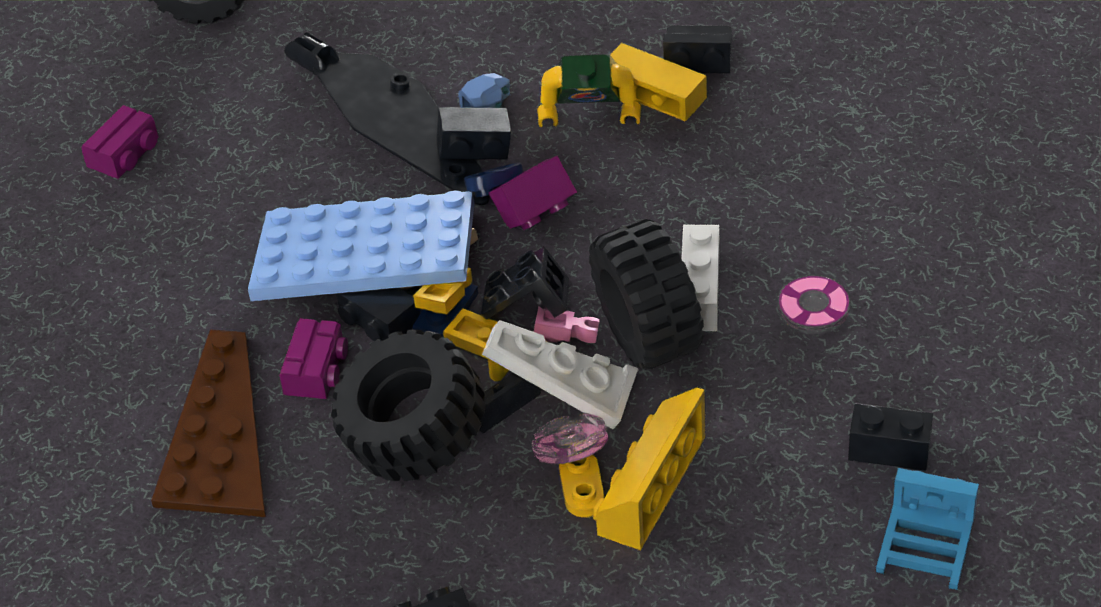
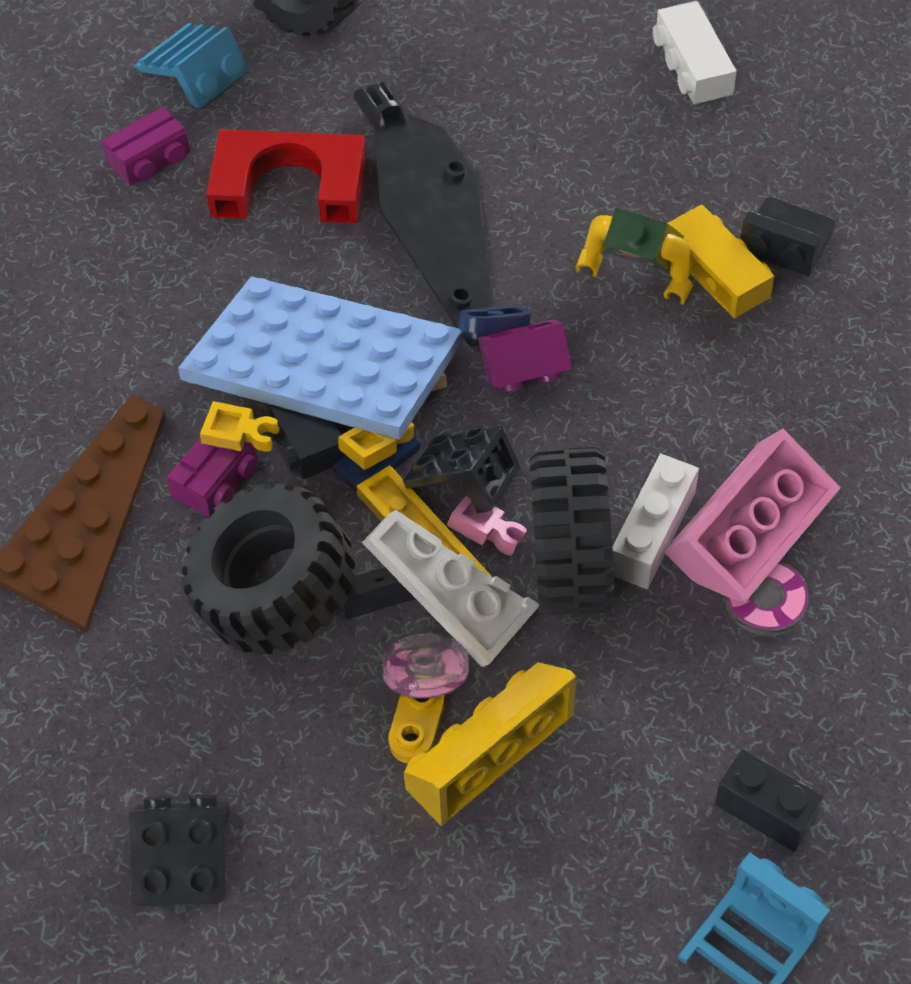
camera: 20 degrees right, 10 degrees up
(138, 62) = (200, 59): none -> dark azure plate
(291, 103) = (247, 155): none -> red arch
(321, 315) = (234, 425): none -> yellow plate
(473, 133) = (497, 259): black brick -> none
(484, 91) = (532, 216): medium blue rock -> none
(776, 250) = (753, 518): none -> bright pink slope

